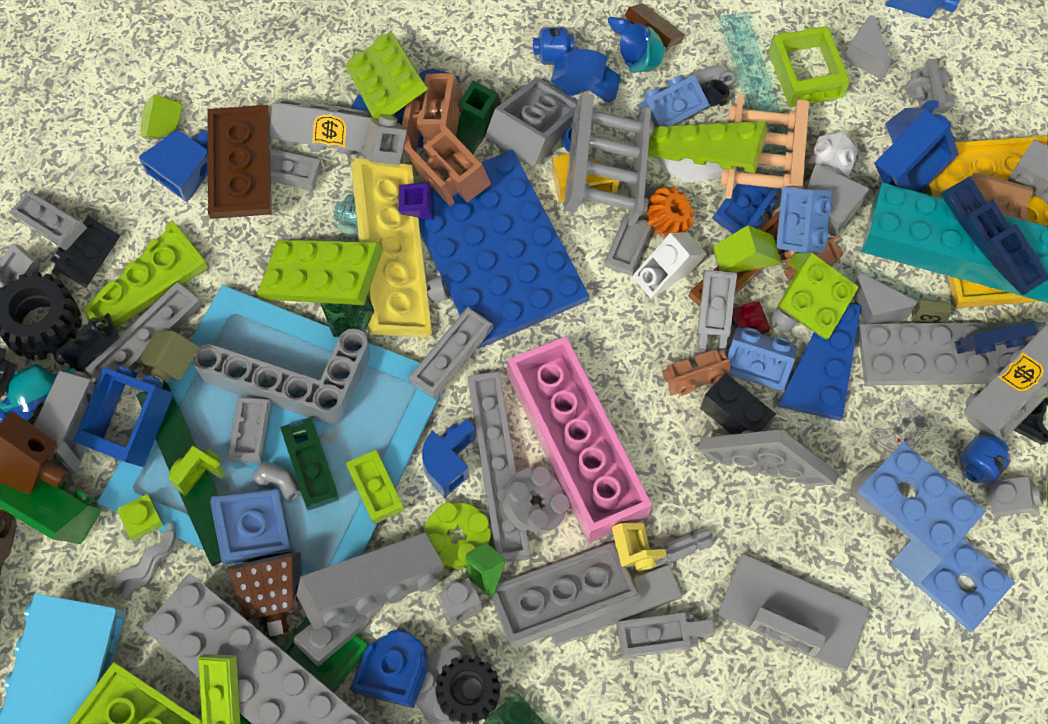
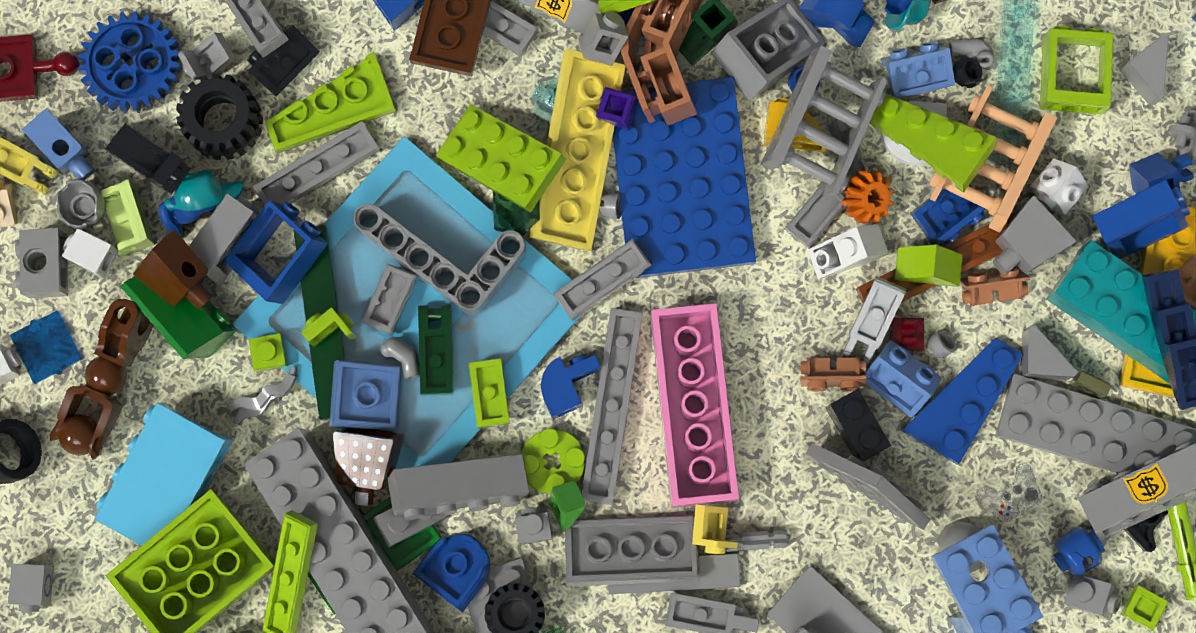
camera: 20 degrees right, 15 degrees up
(91, 342) = (262, 162): black hinge -> none
(167, 356) = (331, 203): olive brick -> none
(549, 493) = (650, 459): light grey plate -> none
(803, 219) = (995, 255): medium blue bracket -> none
(816, 294) = (979, 335): lime bracket -> none
(986, 341) = (1127, 438): dark blue plate -> none

